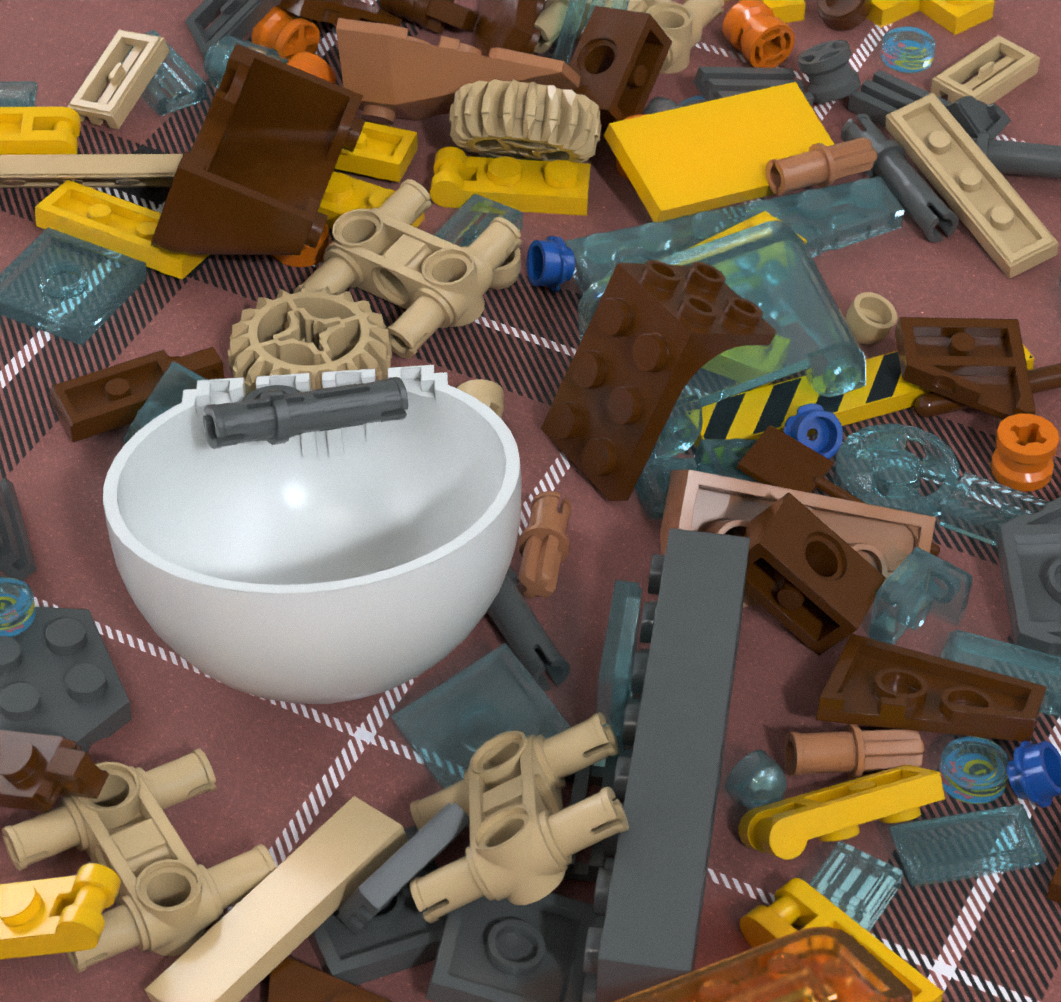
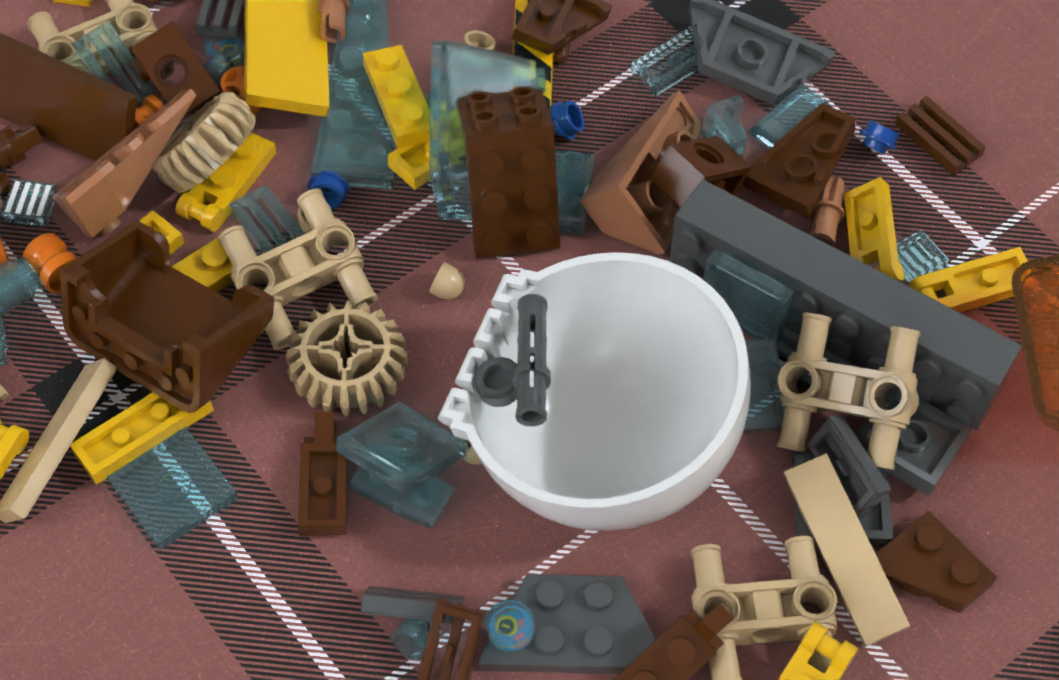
camera: 65 degrees left, 15 degrees up
(789, 464) = (596, 144): reddish brown piece -> none
(894, 472) = (611, 95): clear light blue piece -> none
(967, 845) = (912, 192): clear light blue tile -> none
(974, 770) = (857, 165): clear light blue tile -> none
(1025, 452) = (631, 27): orange wheel -> none

